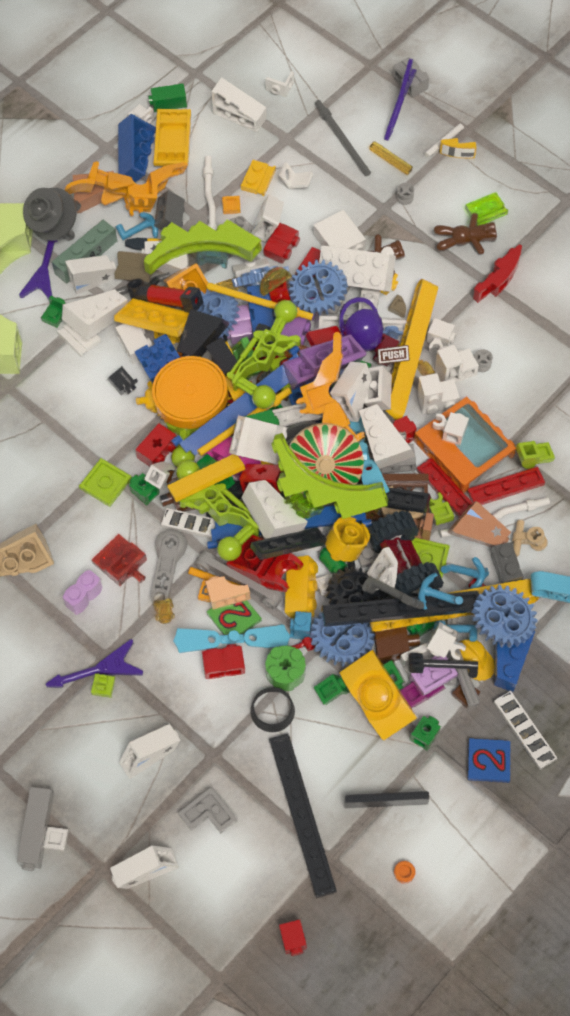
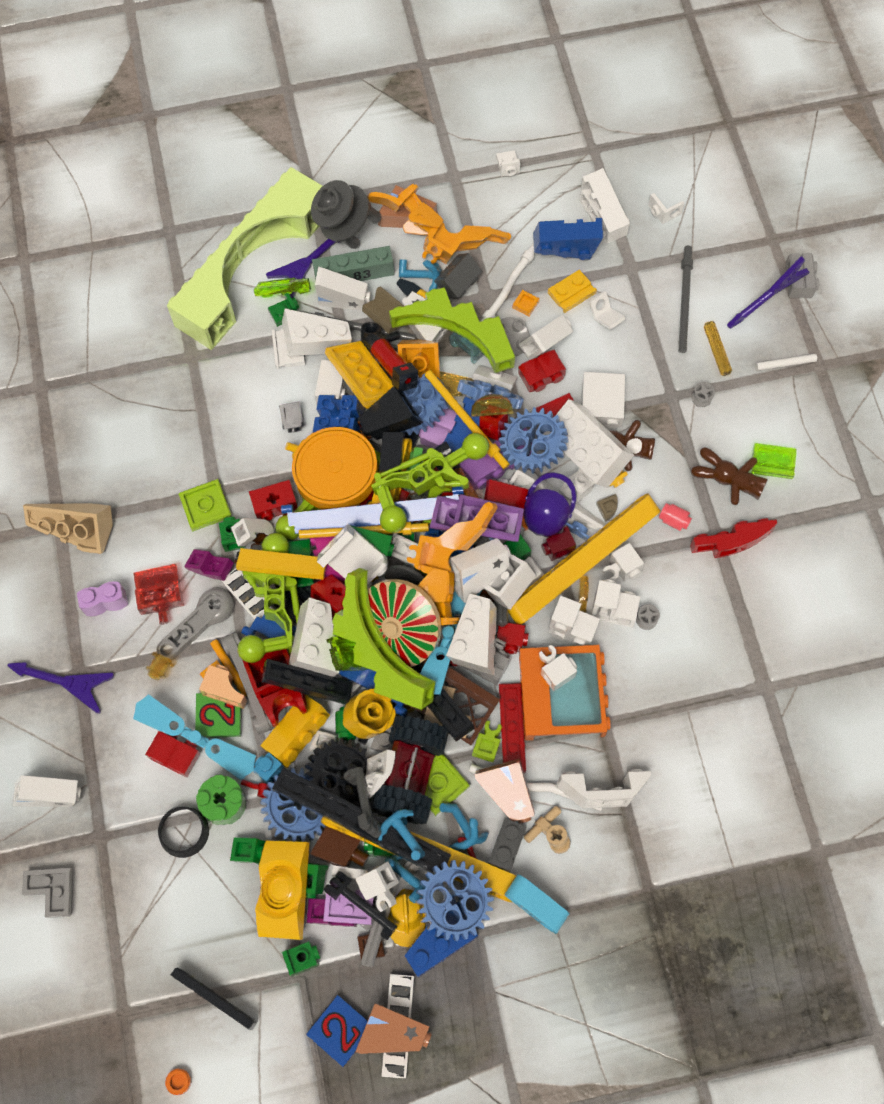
camera: 35 degrees right, 5 degrees up
(41, 295) = (282, 286): none -> clear neon green hinge
(103, 685) = (56, 700): lime tile -> none
(134, 146) = (476, 190): blue wedge -> none
(142, 521) = (208, 565): none -> magenta slope
(168, 97) = (545, 159): green brick -> none
(172, 136) = (519, 202): yellow slope -> none
(232, 141) = (568, 239): none -> blue wedge
(293, 938) = (29, 1069): red brick -> none
(302, 816) = (130, 956): black tile -> none
(393, 354) = (558, 554): sticker -> none
(425, 527) = (456, 751): nougat bracket -> none
(450, 284) = (675, 516): none -> coral brick
(452, 148) = (786, 375): slope -> none
(506, 486) = (566, 760): red tile -> none
(525, 497) = (575, 788): none -> white slope
(527, 732) = (392, 1033): none -> nougat slope
(533, 453) = (621, 748): lime brick -> none

